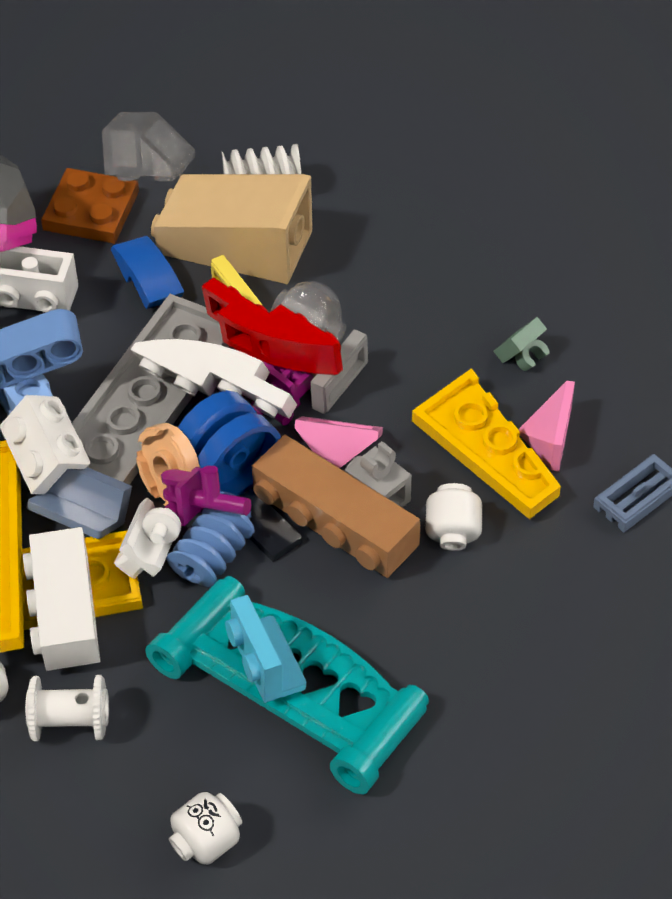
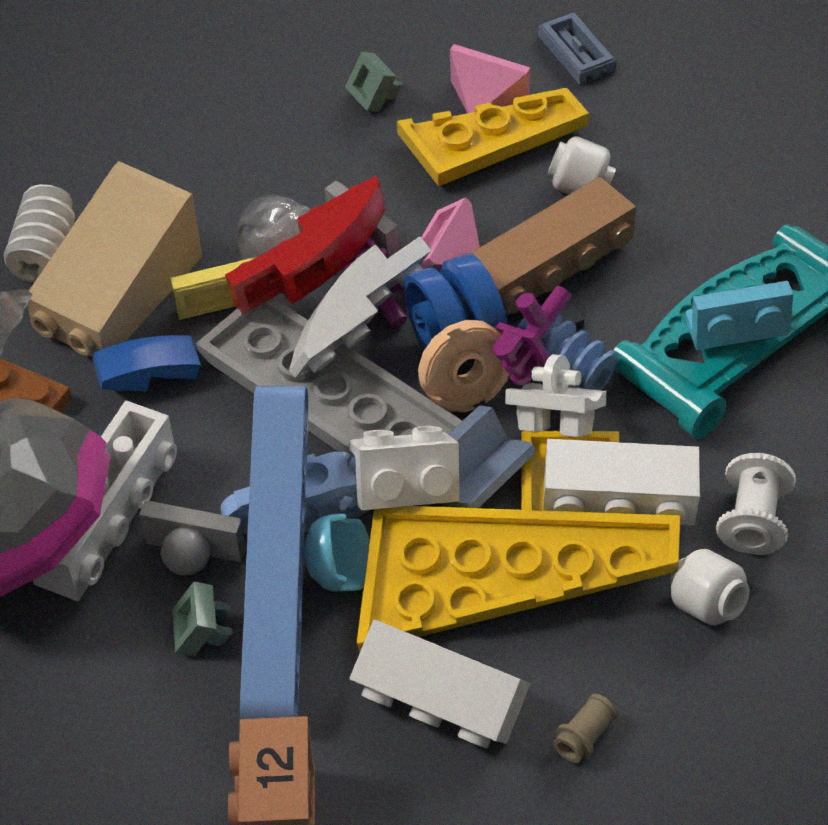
camera: 75 degrees left, 0 degrees up
(382, 474) = (517, 204): light grey brick -> none

